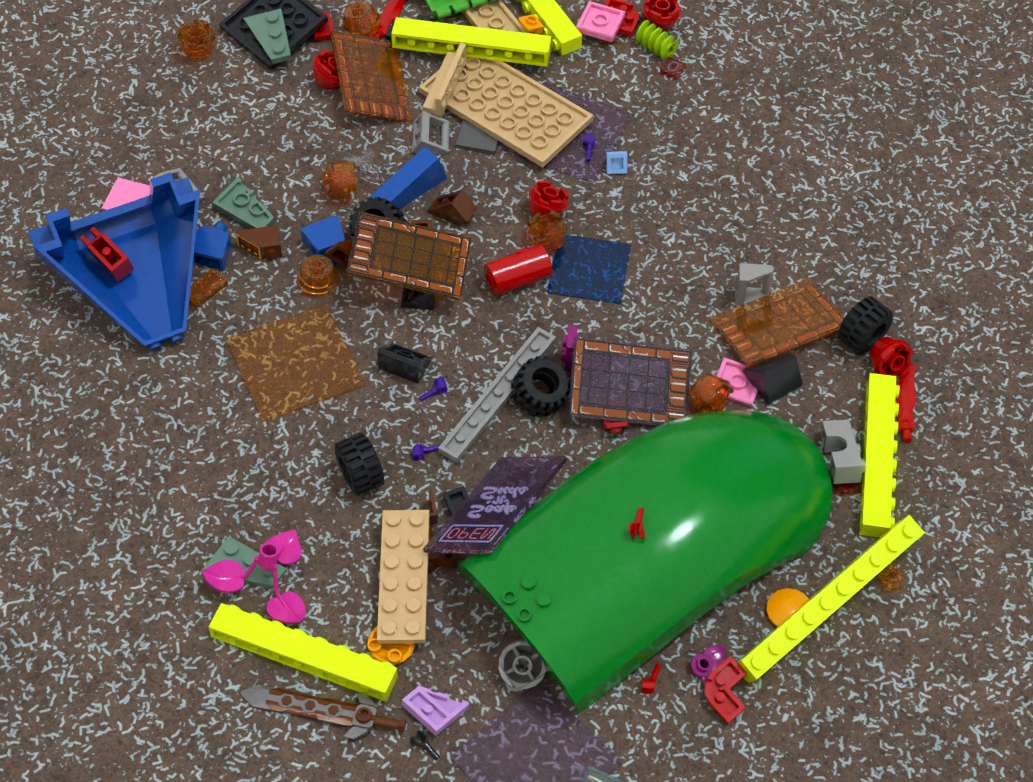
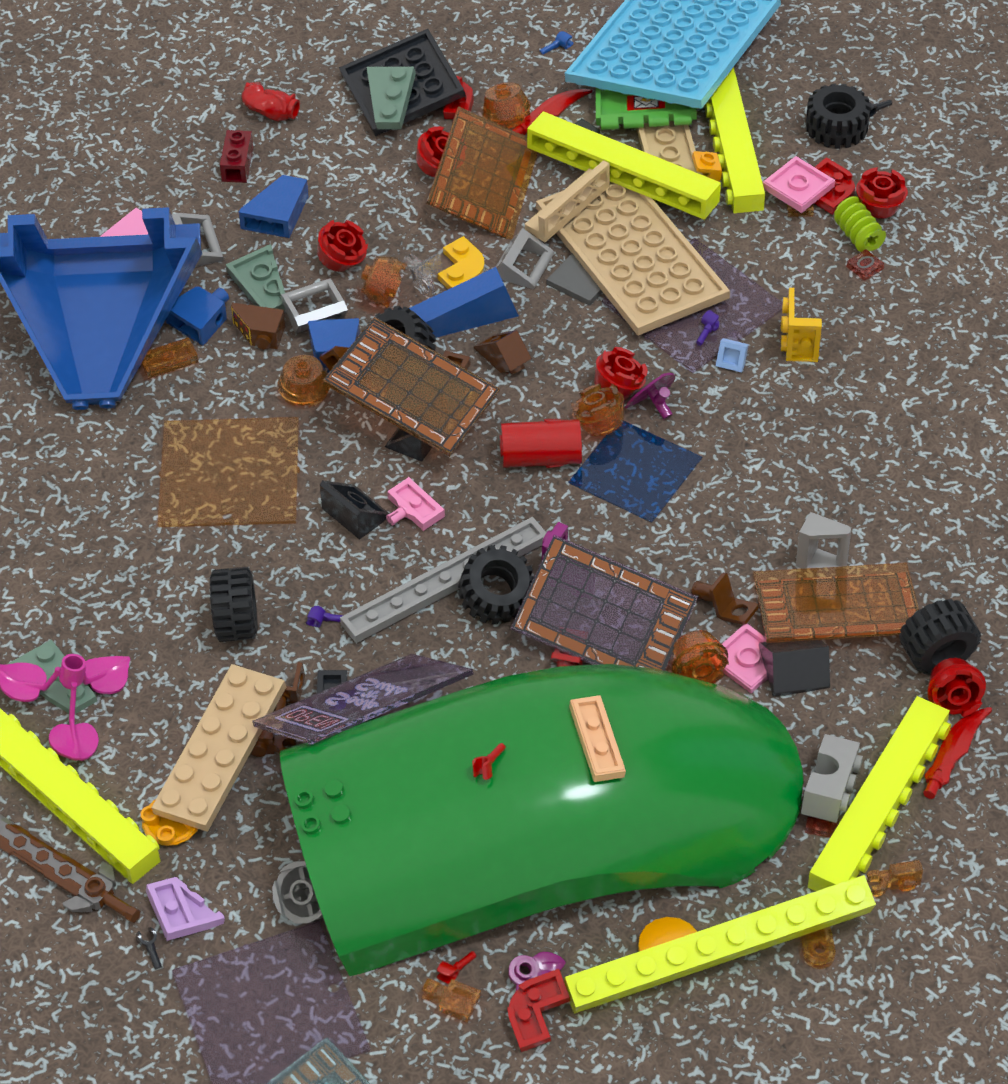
camera: 25 degrees right, 5 degrees down
(108, 255) = (75, 288): red hinge -> none
(176, 115) = (236, 156): none -> dark red brick
(180, 66) = (270, 103): none -> red animal
(196, 39) = (301, 76): clear orange cone -> none
(227, 147) = (276, 207): none -> blue slope
(292, 230) = (300, 322): none -> light grey tile
(294, 162) = (341, 245): none -> red cone
(392, 151) = (467, 263): none -> yellow plate
(440, 388) = (381, 552): dark purple hand -> none
(447, 345) = (414, 505): none -> bright pink plate
(583, 210) = (658, 393): none -> magenta shield
(658, 136) = (802, 334): none -> yellow bracket
(665, 703) = (455, 1000): none -> clear orange plate
(702, 346) = (723, 599): none -> reddish brown bracket
(703, 481) = (597, 738): none -> light nougat tile
(919, 505) = (899, 876): none -> clear orange plate

